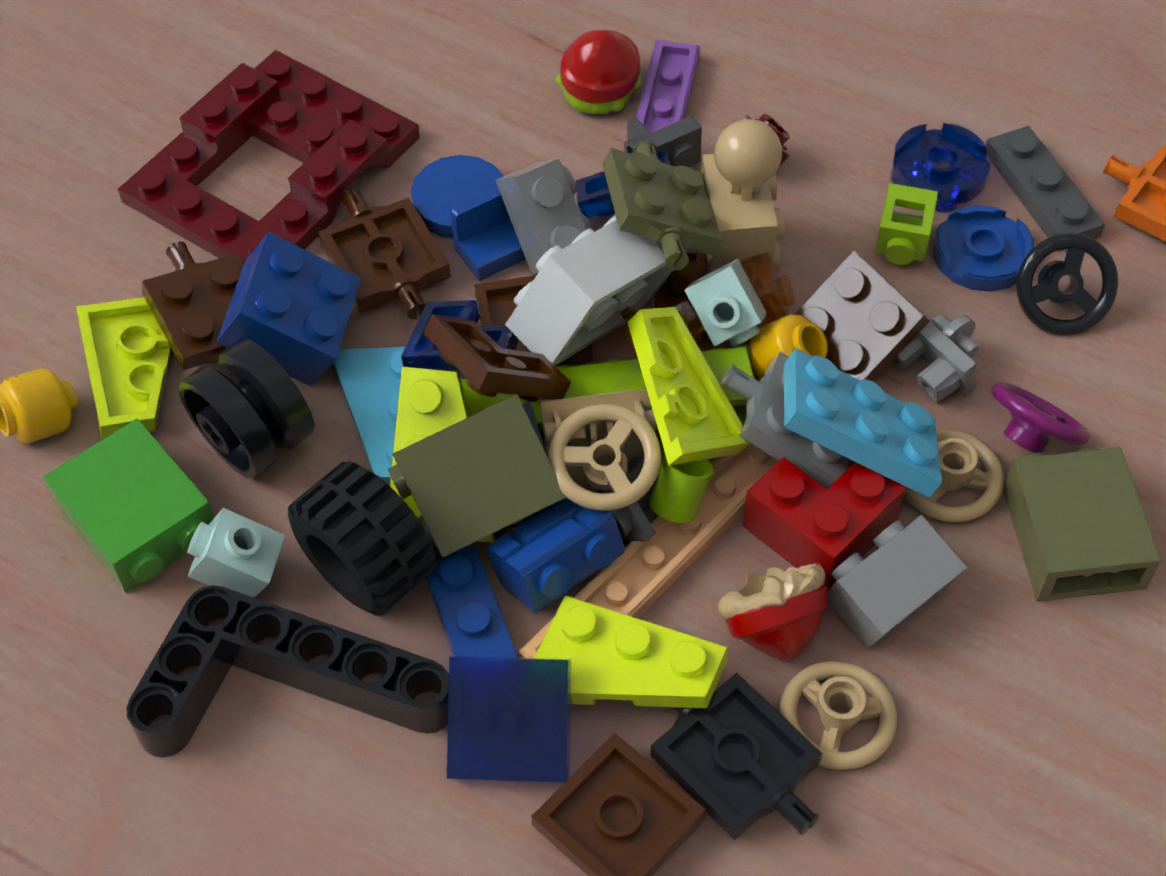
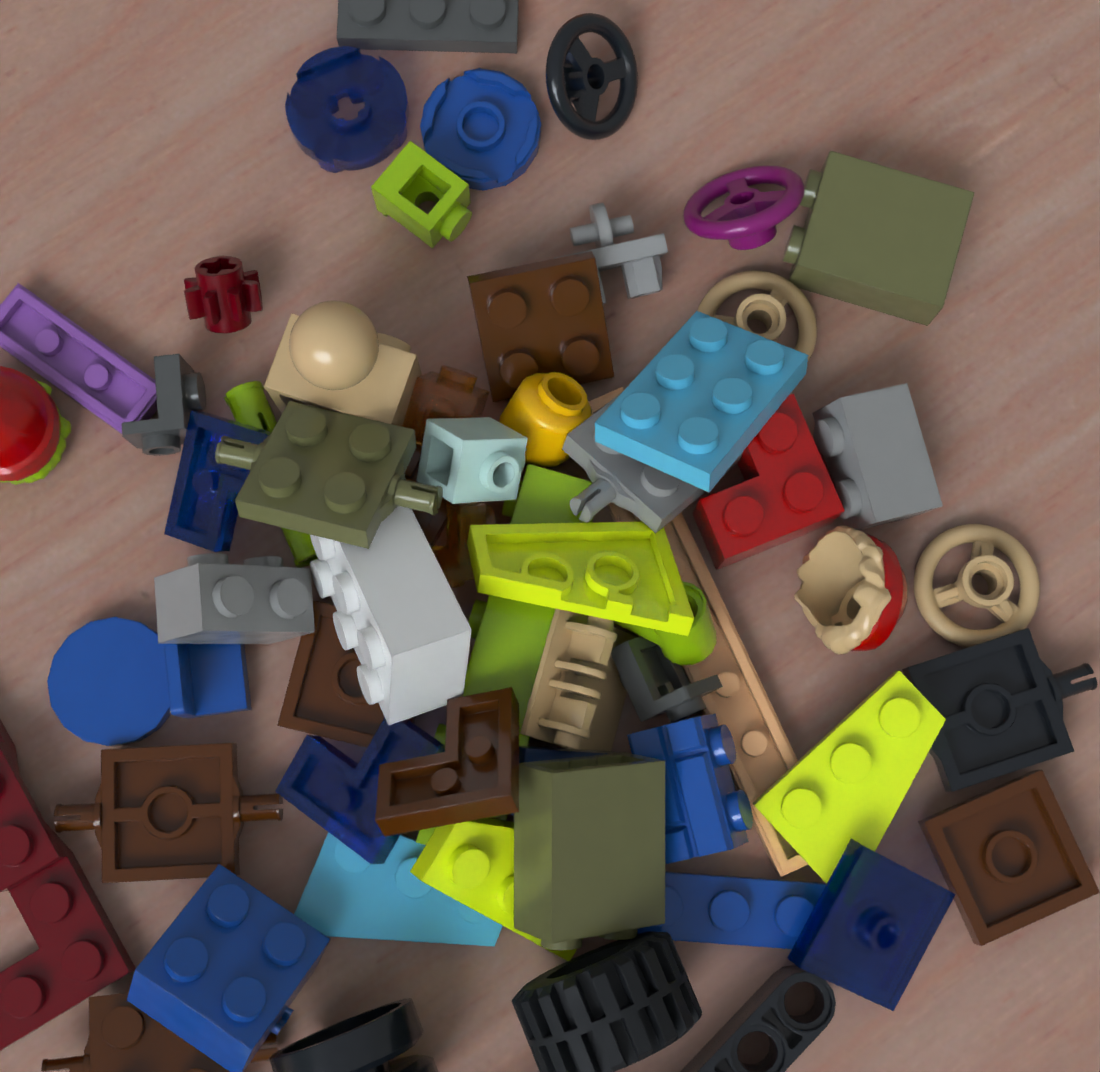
camera: 70 degrees left, 25 degrees up
(610, 476) = (615, 698): tan piece -> none

